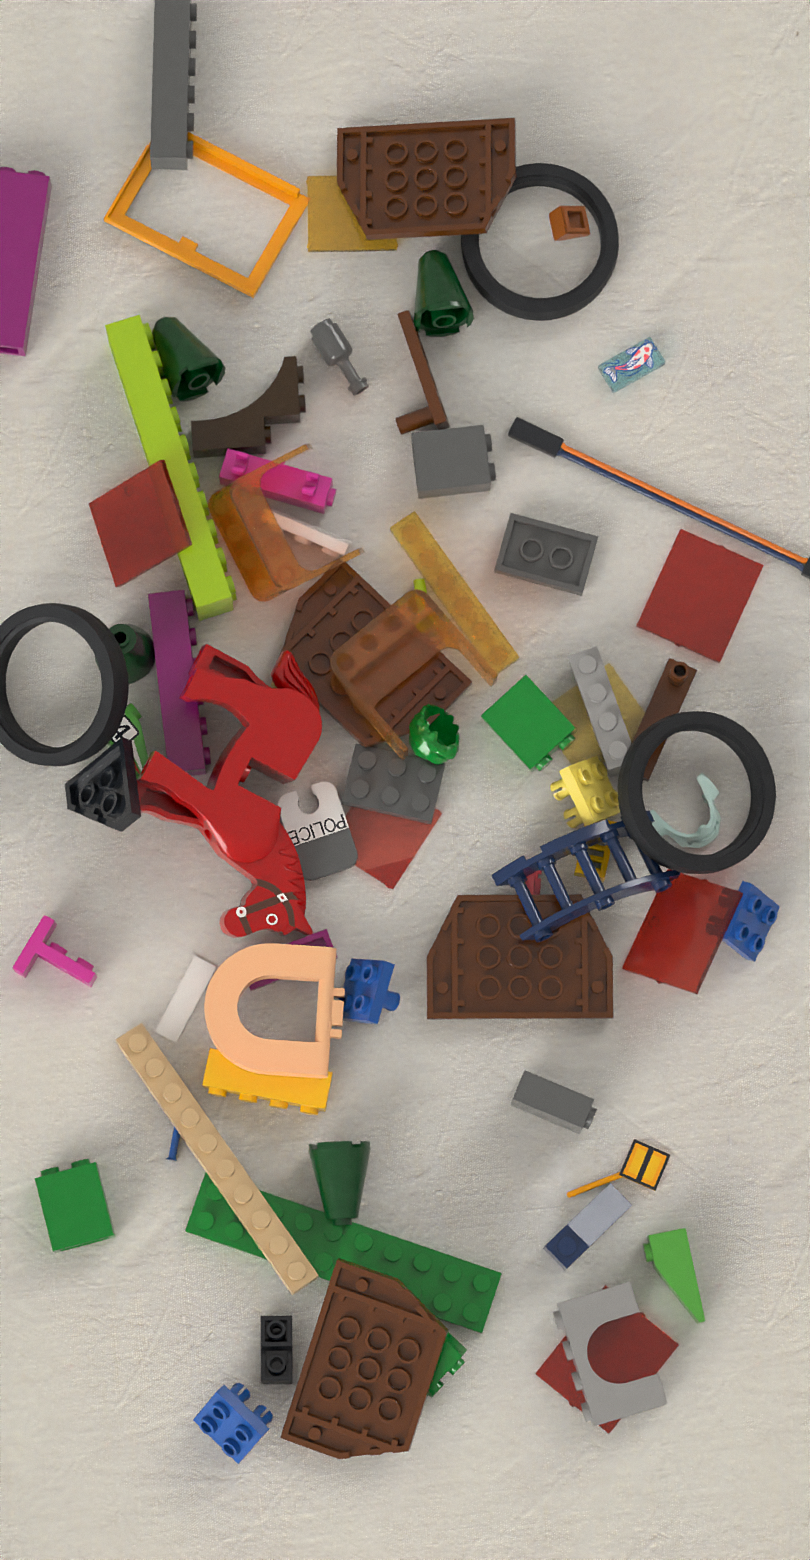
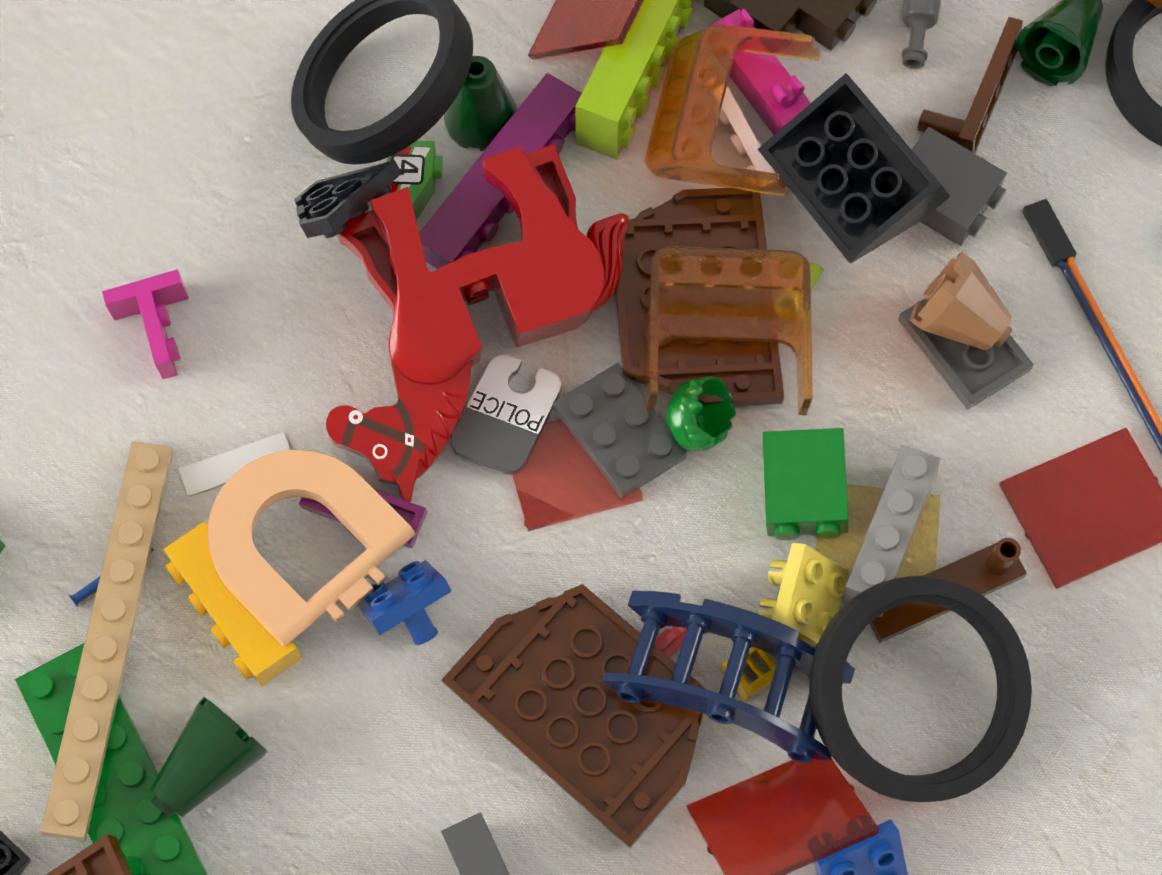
camera: 45 degrees right, 10 degrees down
(395, 505) = (852, 170): none -> black slope
(454, 592) = (838, 334): clear yellow plate -> none
(530, 538) = (963, 307): none -> medium nougat cone
(705, 833) = (893, 742): light aqua helmet -> none

